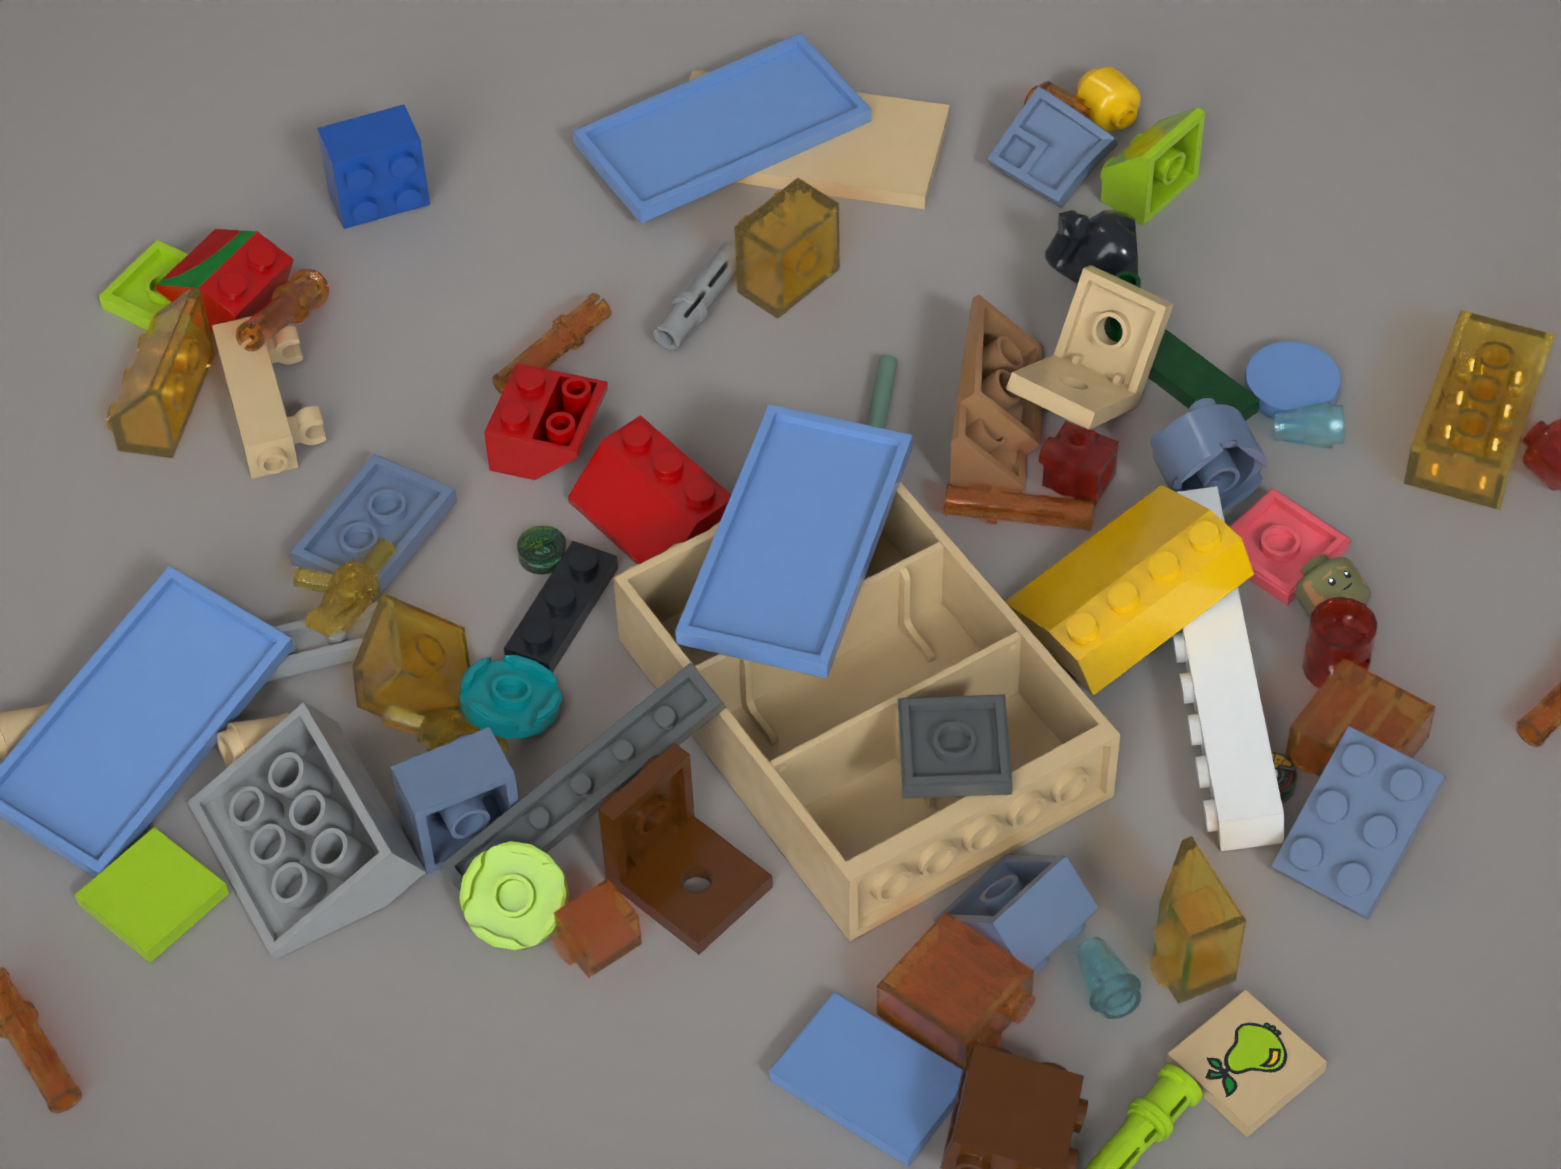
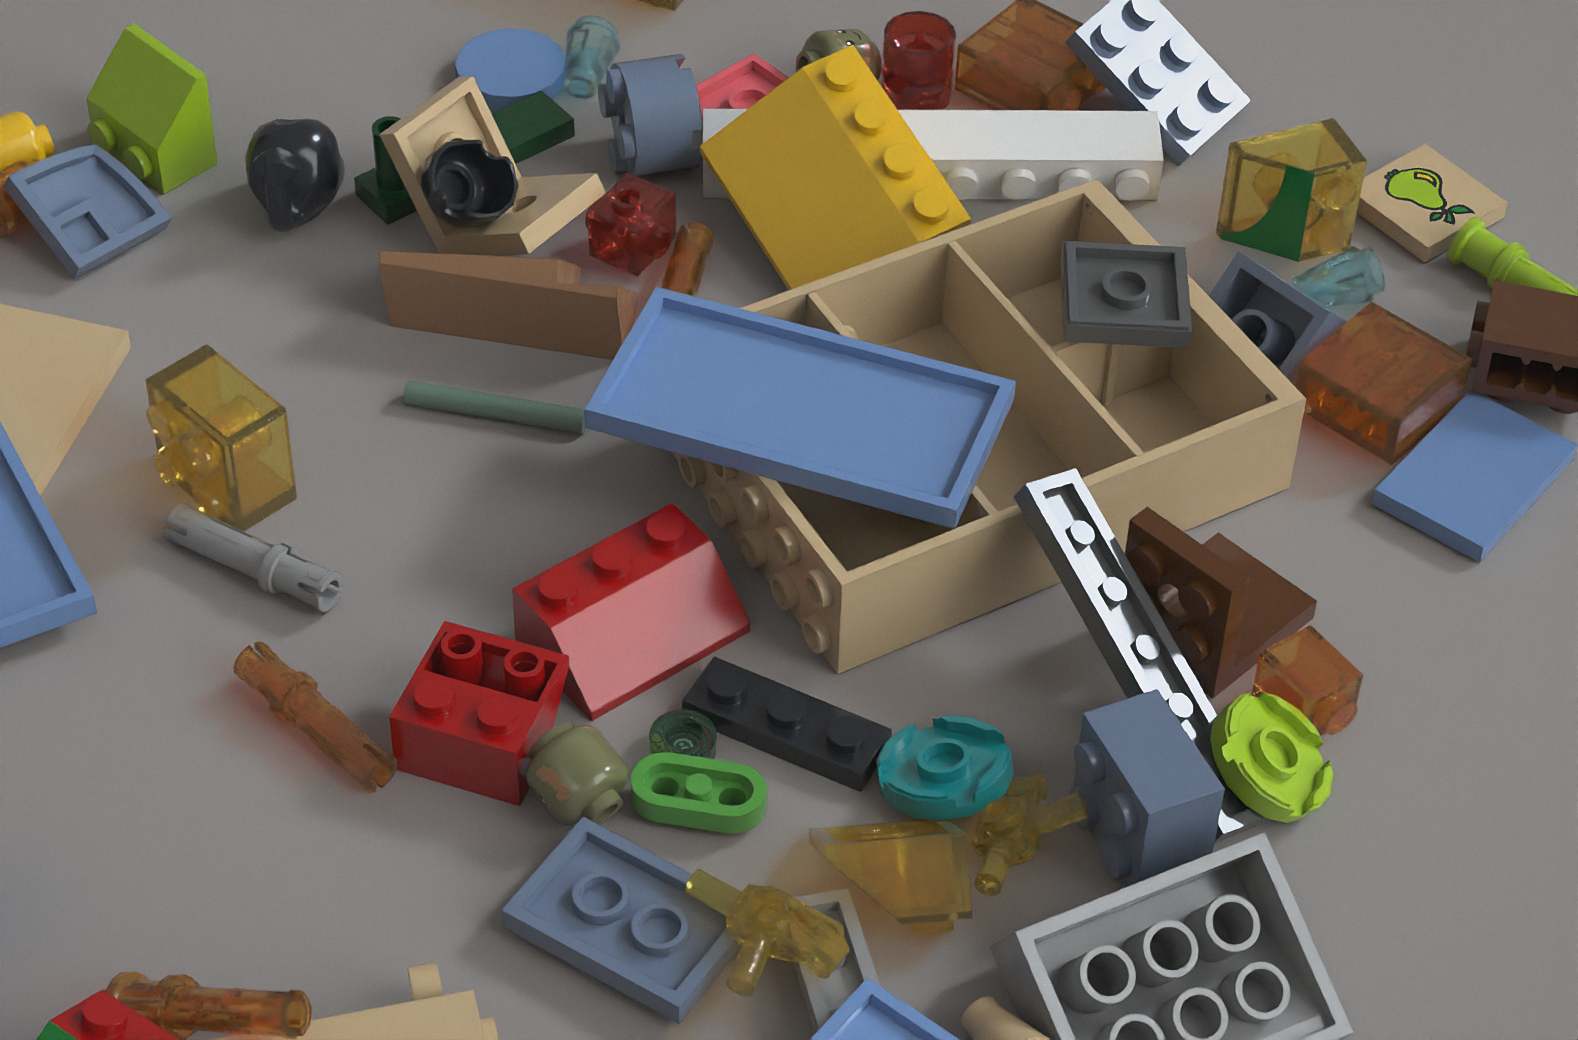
camera: 90 degrees left, 5 degrees down
(485, 566) = (700, 792): none -> bright green plate
(488, 480) = (576, 774): none -> olive head
(1068, 336) = (468, 184): none -> black hair

